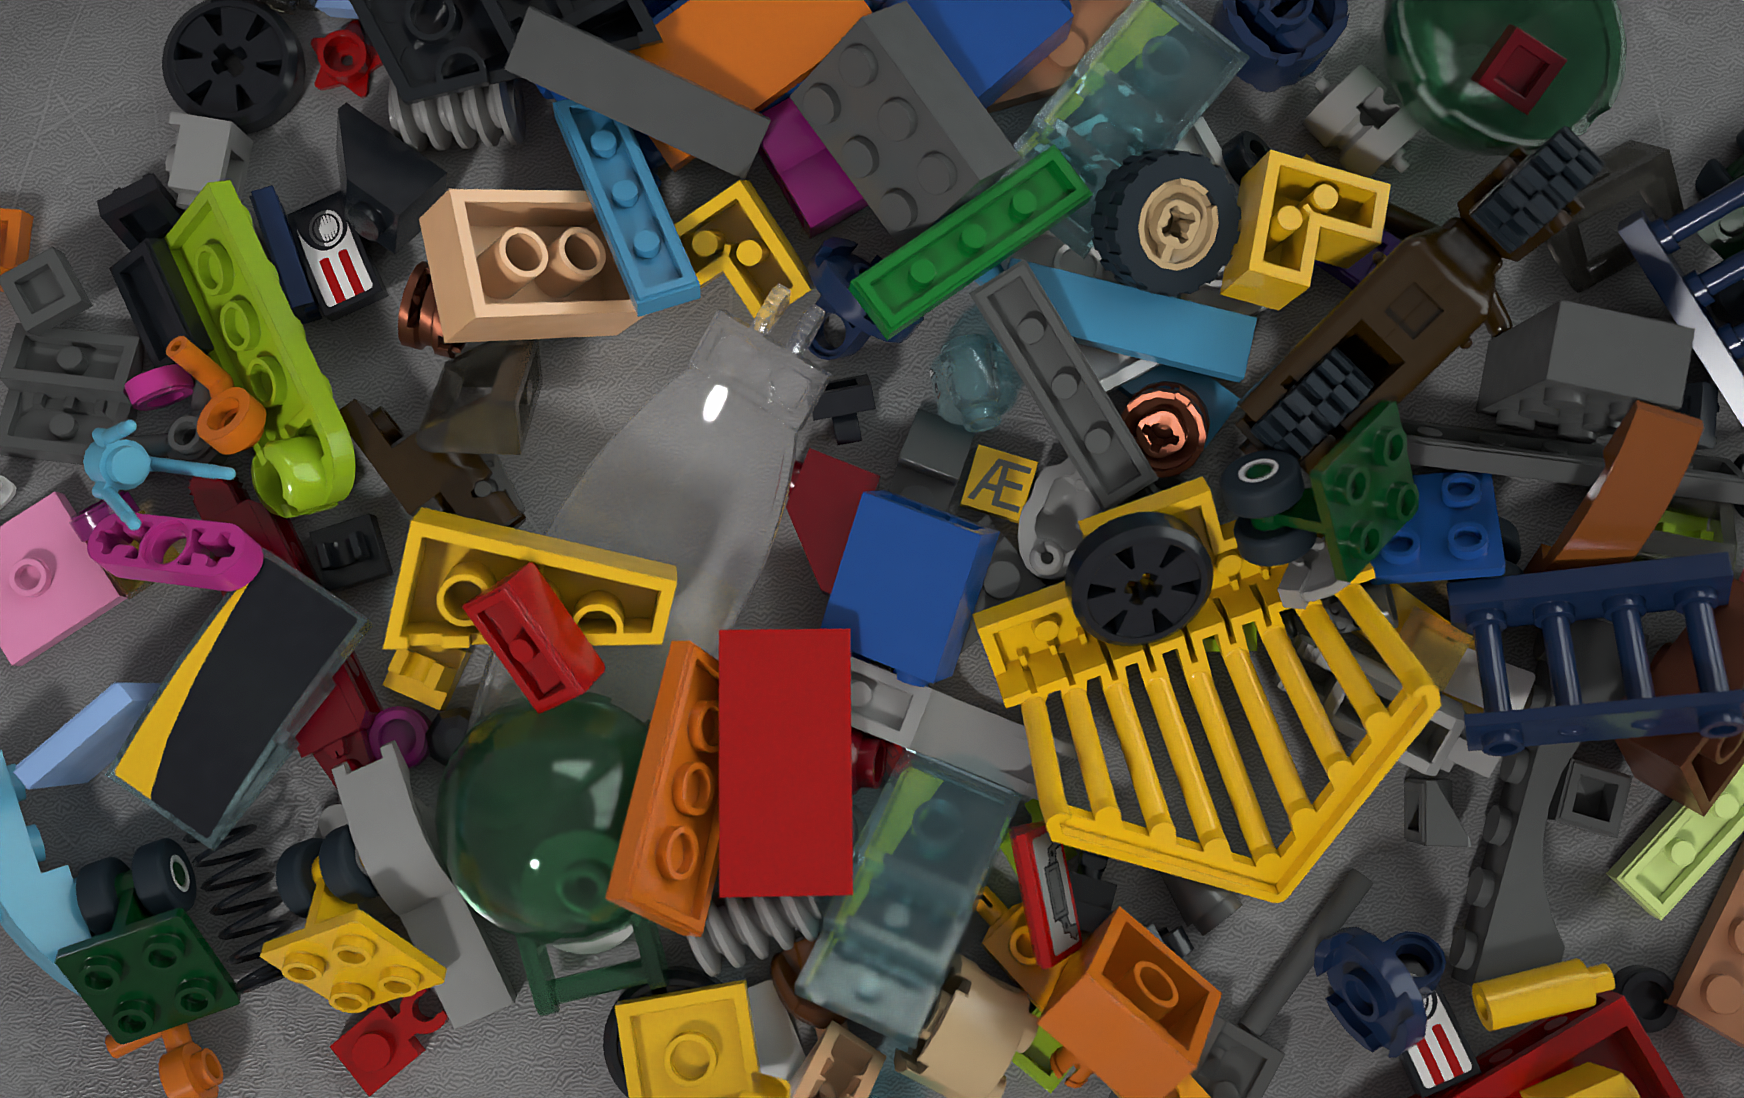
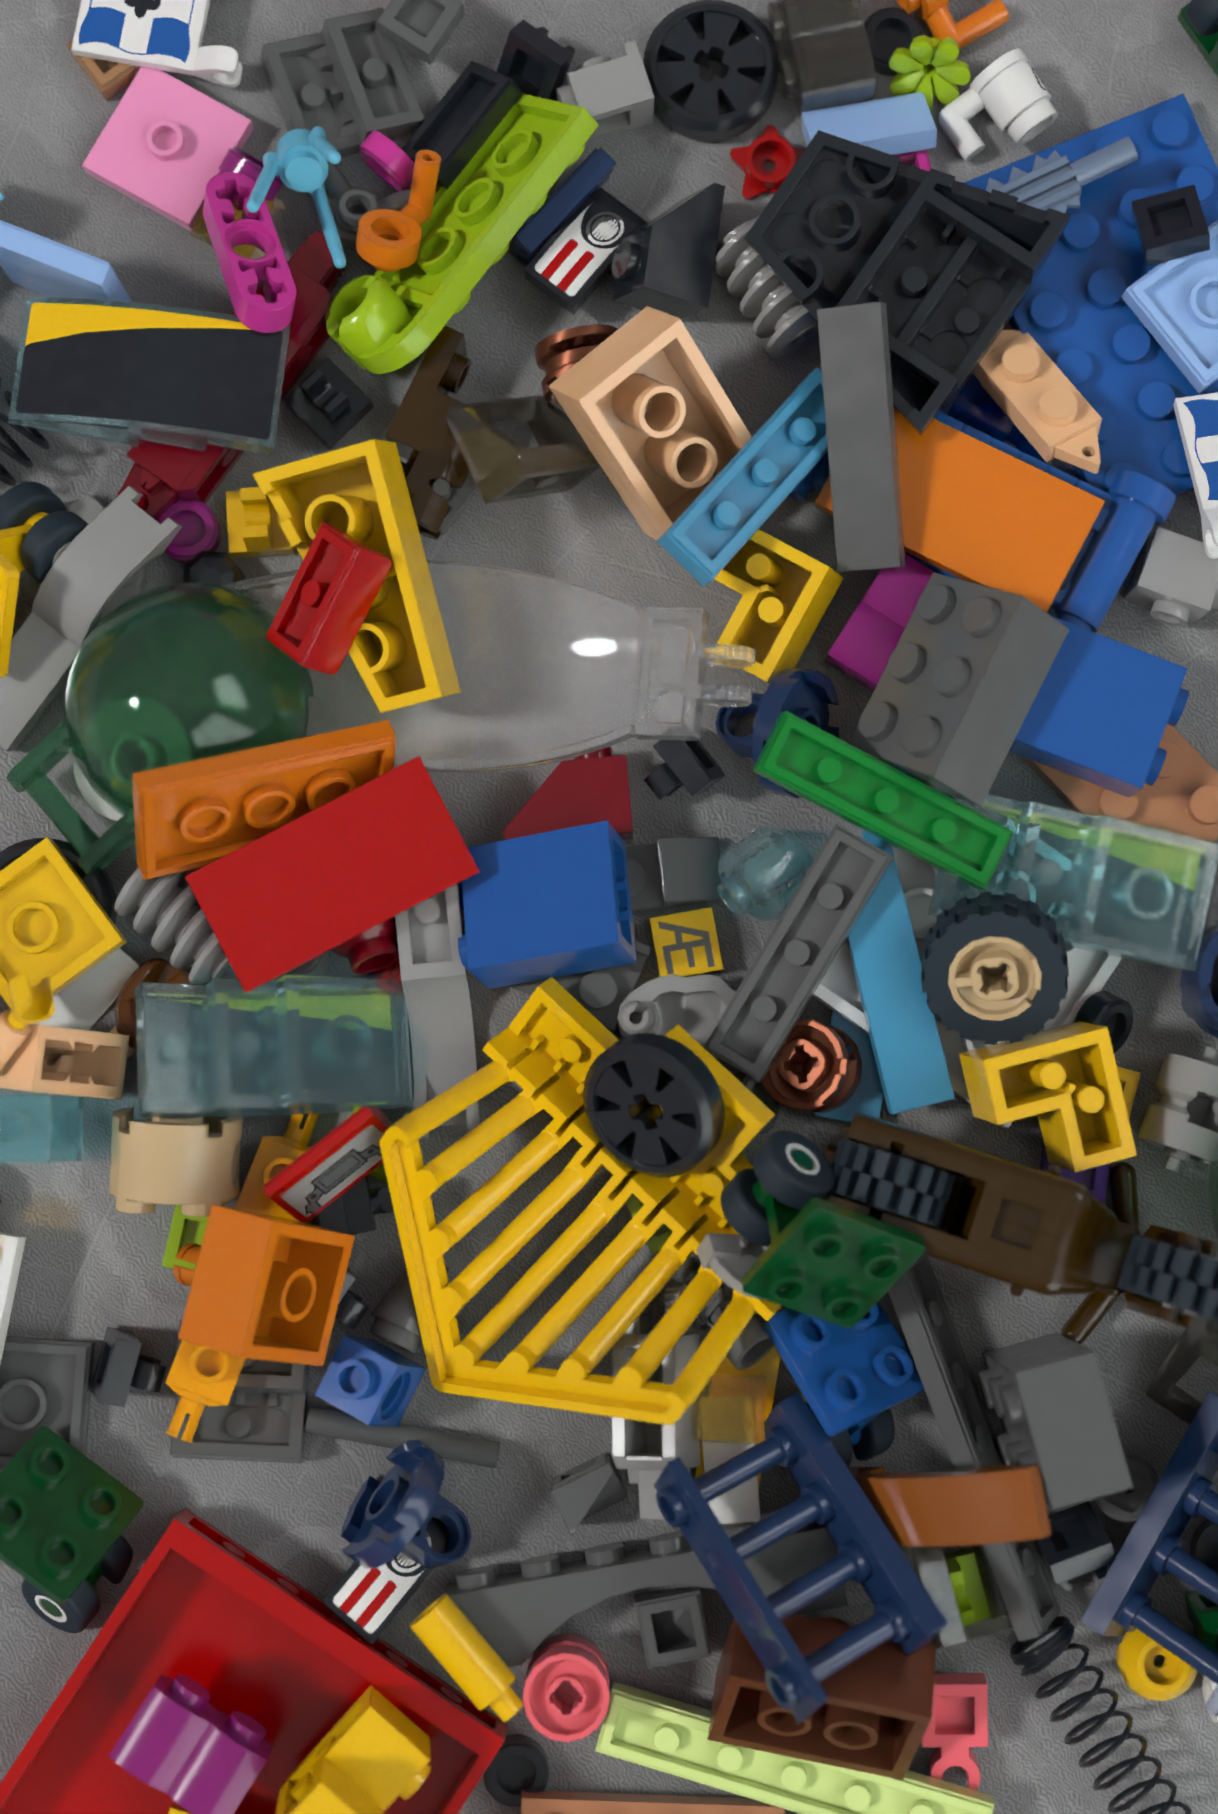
camera: 65 degrees right, 0 degrees up
(1249, 957) = (370, 1381): none -> blue brick
(1604, 917) = (566, 1687): none -> coral wheel

